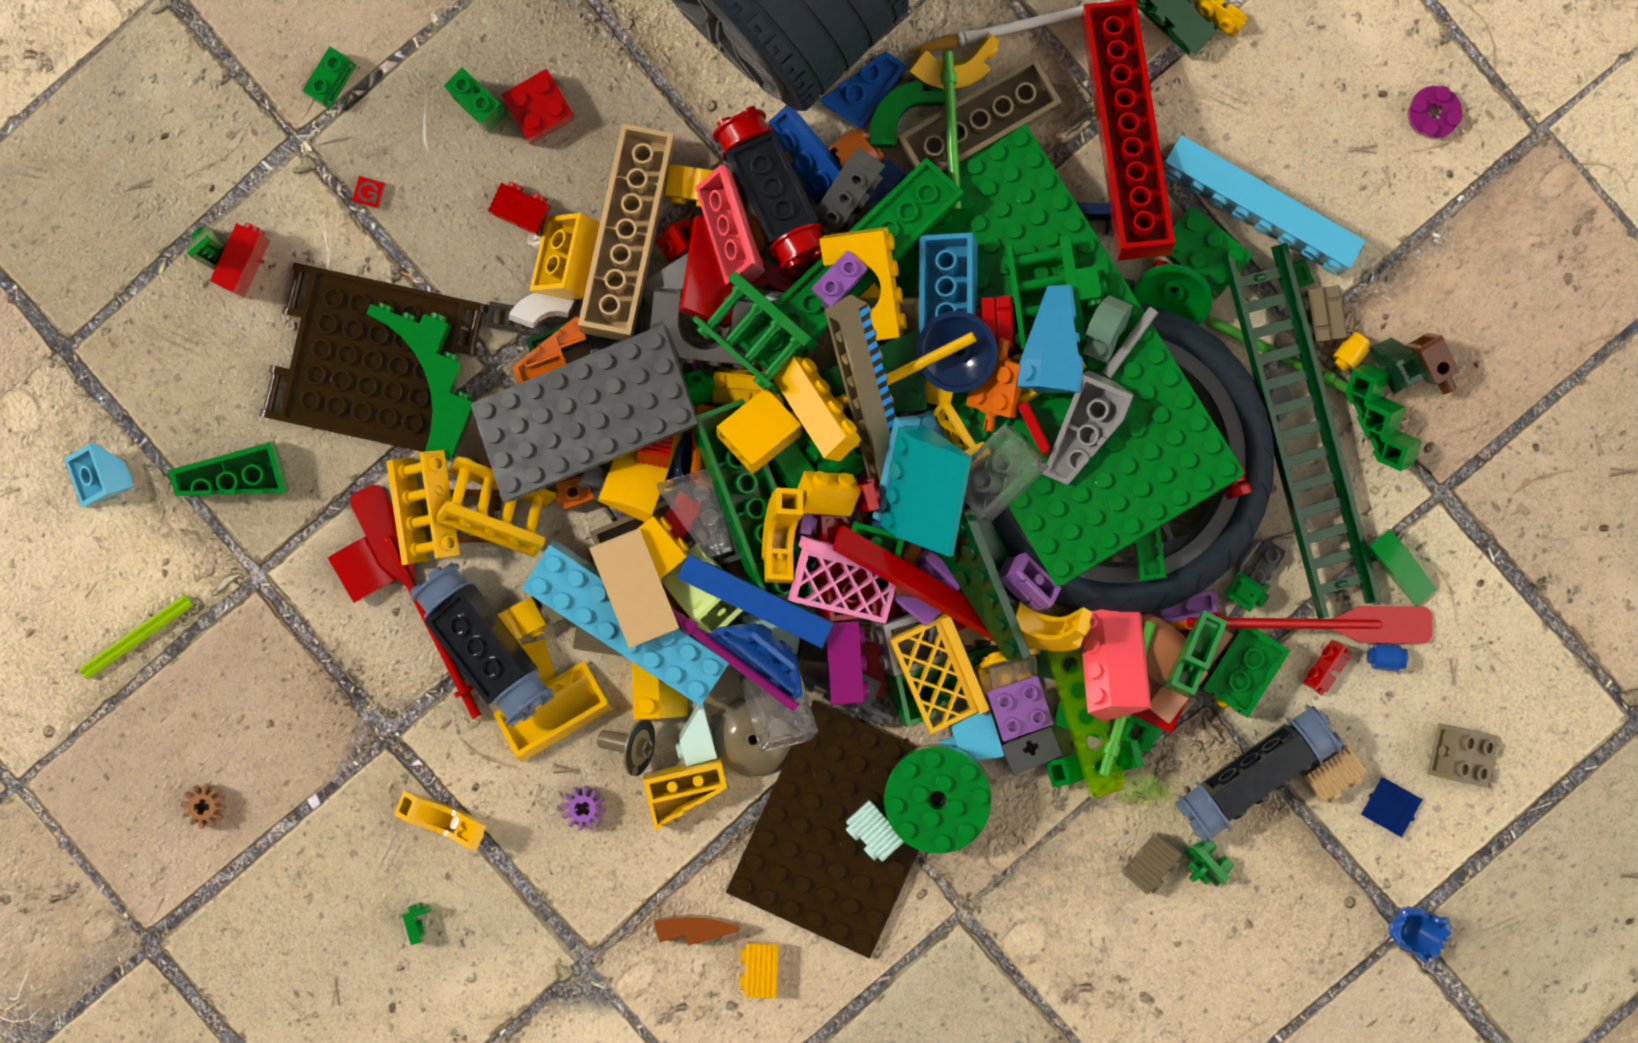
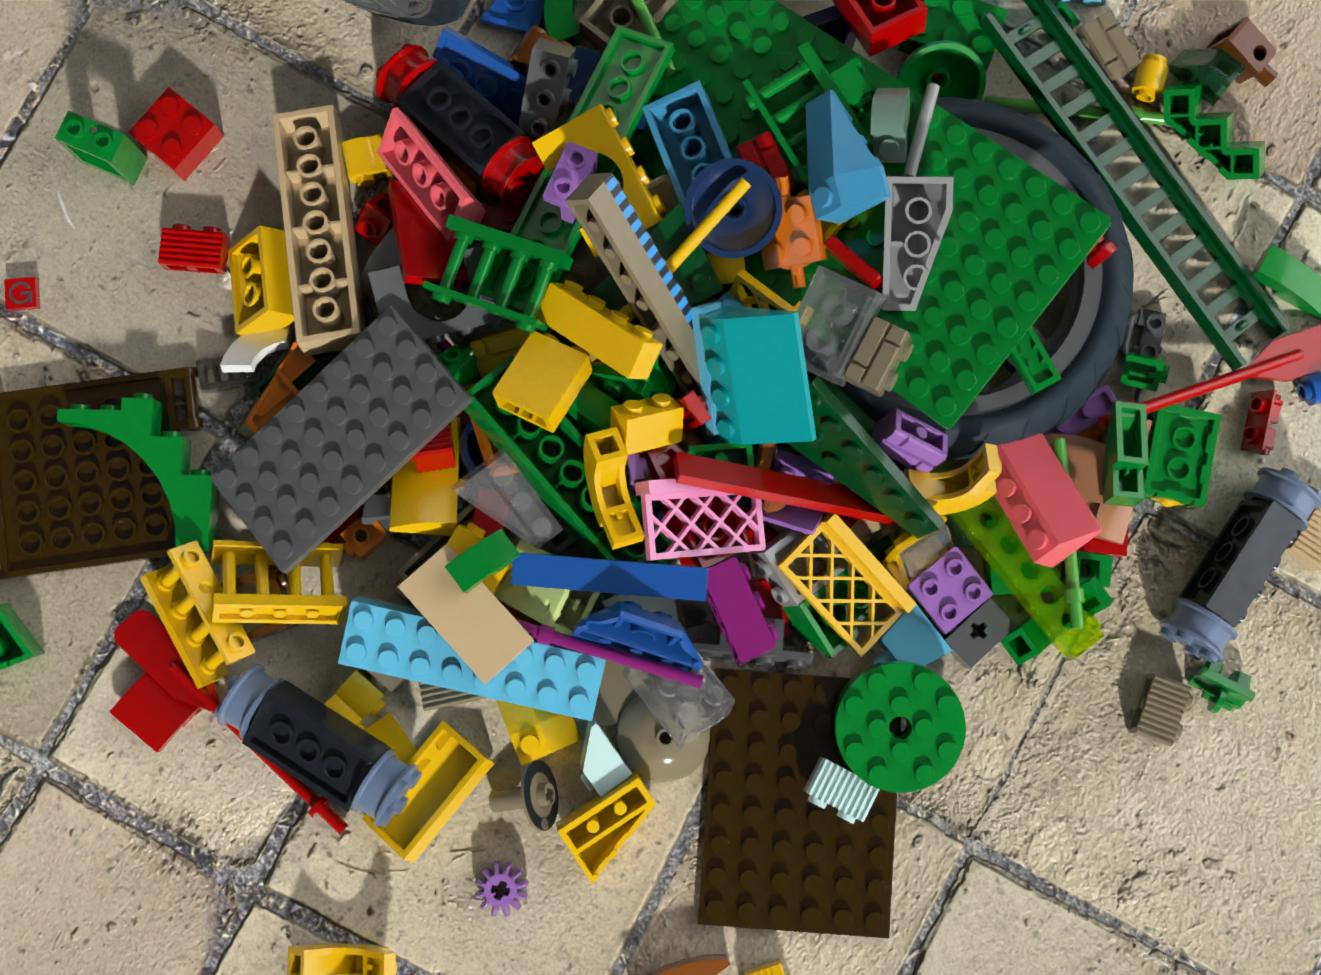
camera: 25 degrees left, 5 degrees down
(662, 552) = (482, 560): none -> green slope
(1024, 511) = (878, 357): none -> dark tan brick

